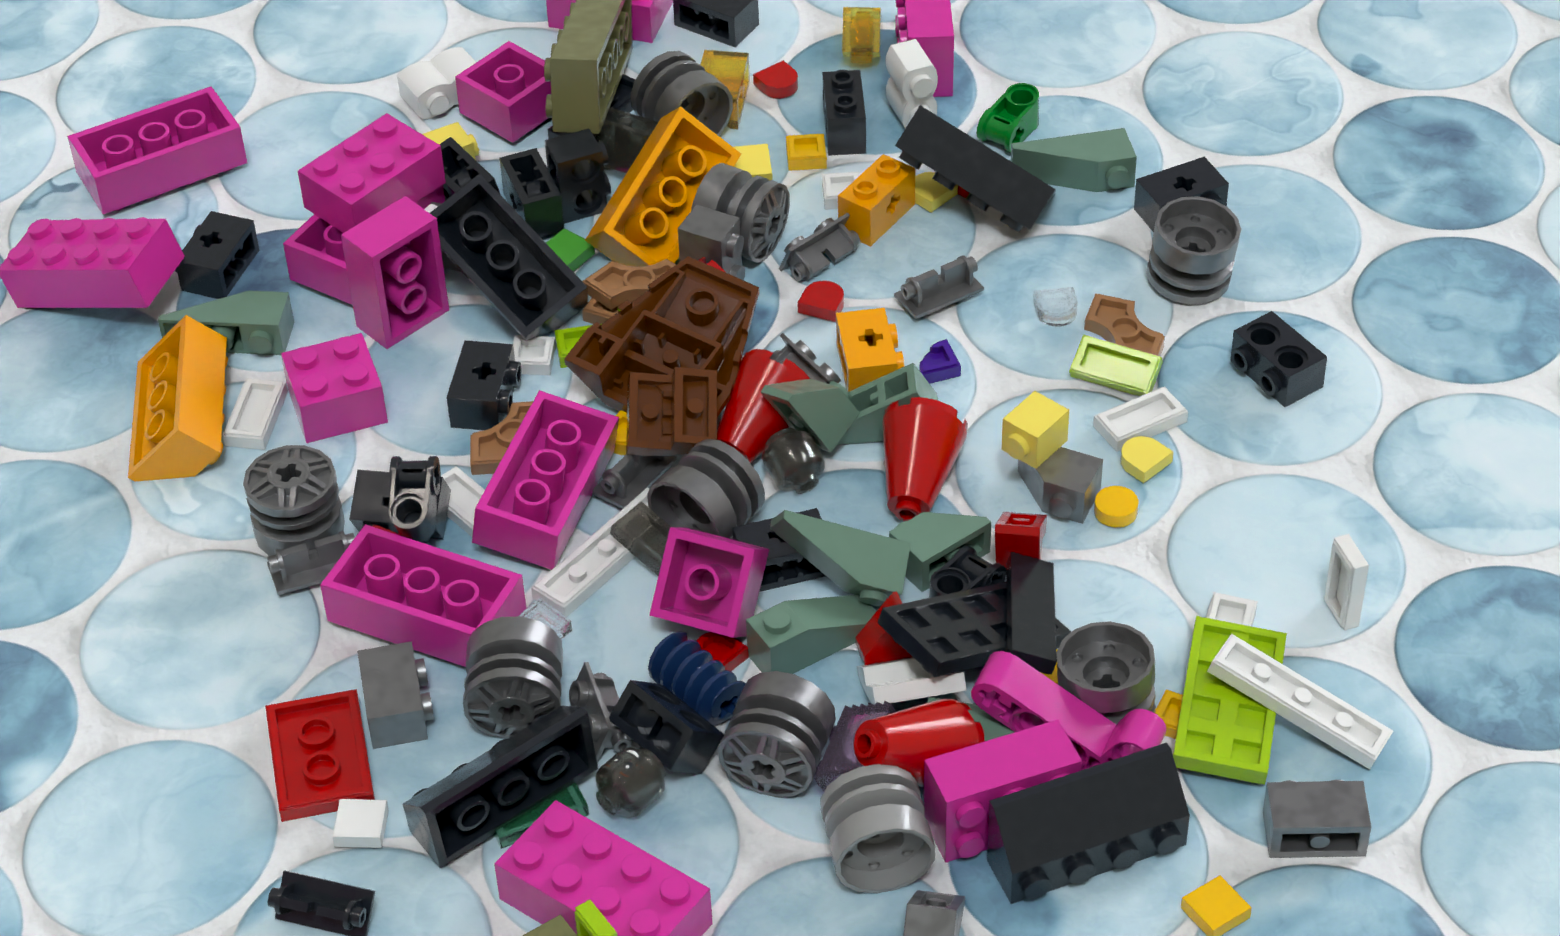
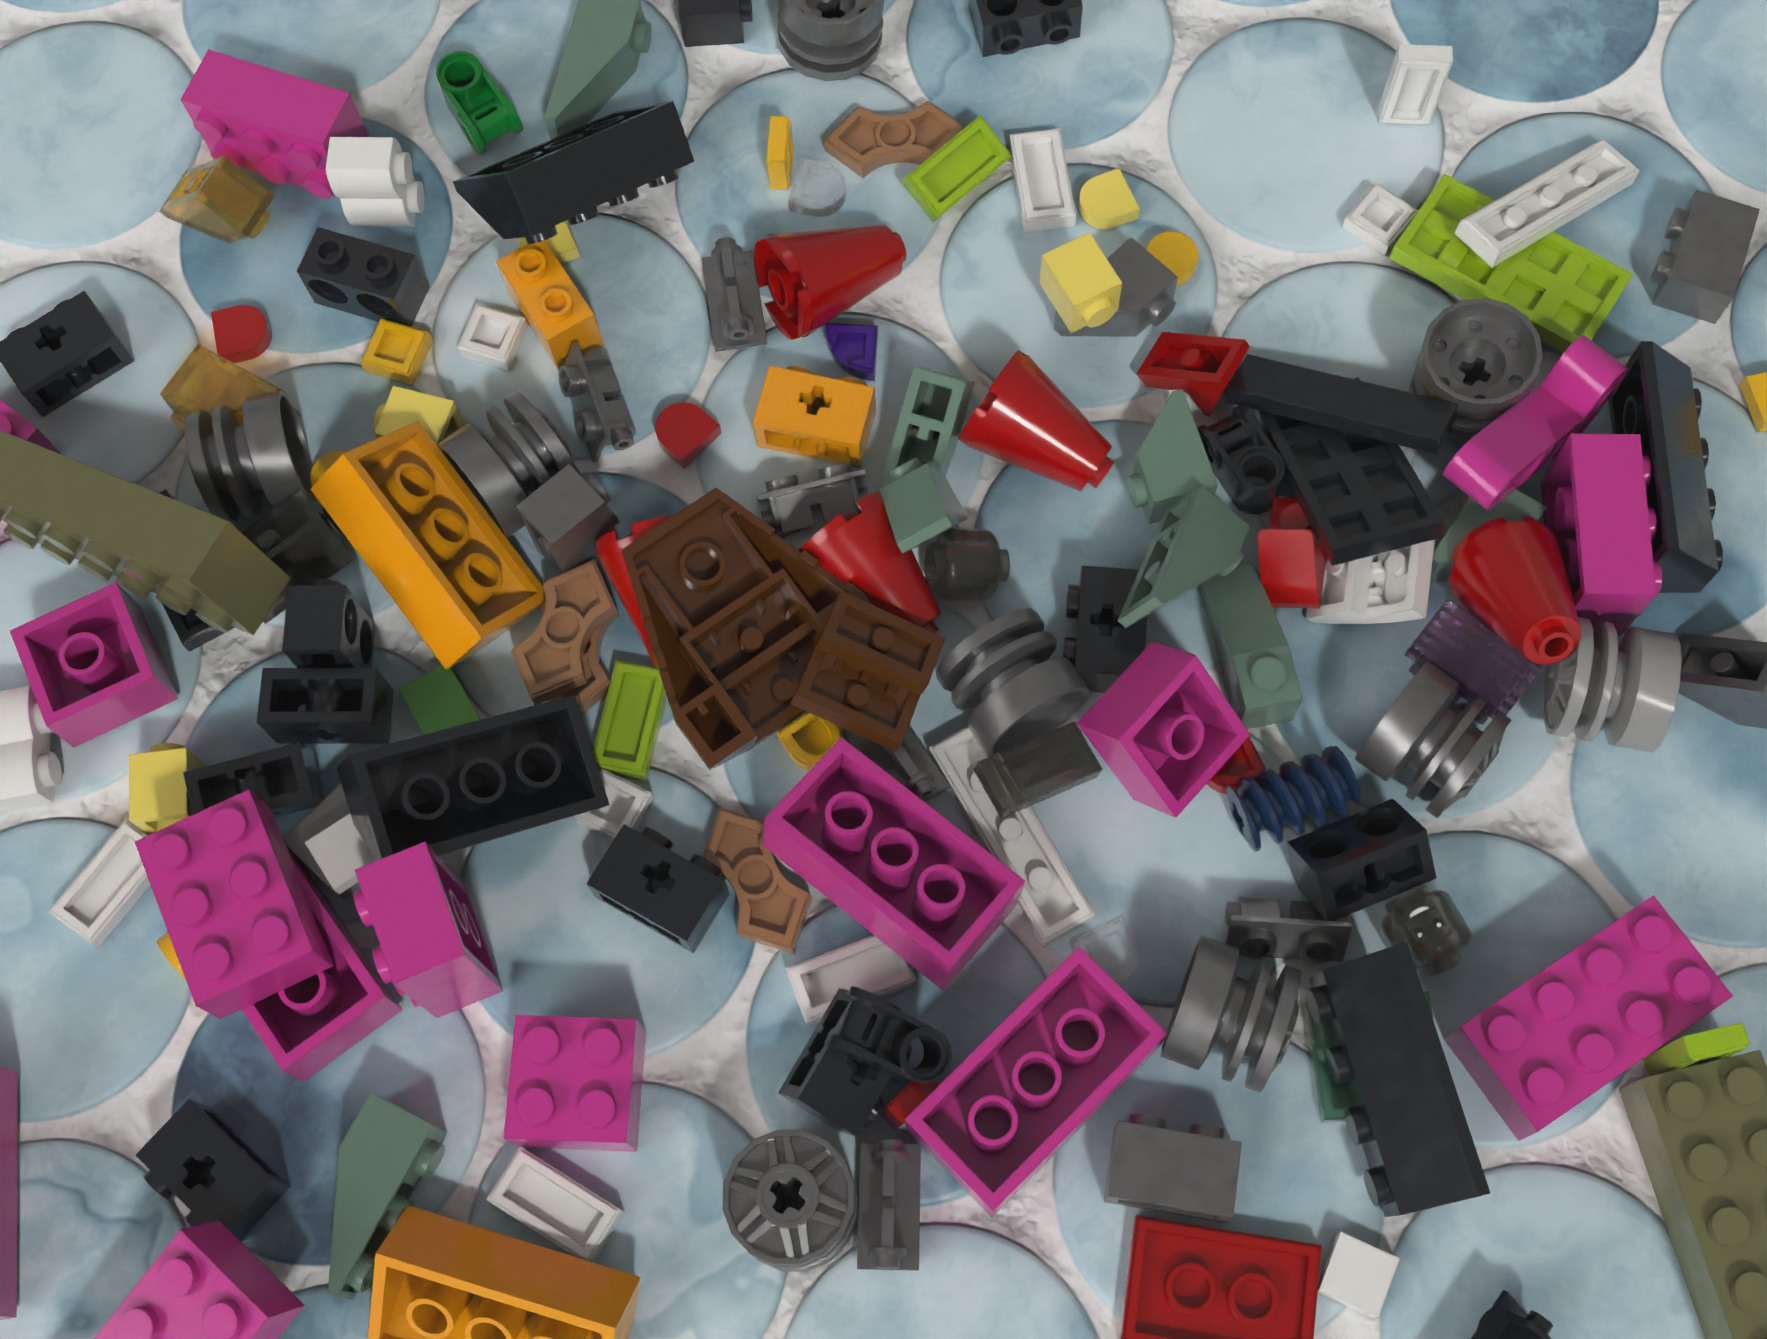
camera: 65 degrees left, 25 degrees up
(978, 317) = (824, 272): none -> red cone
(1067, 269) = (780, 152): none -> yellow tile

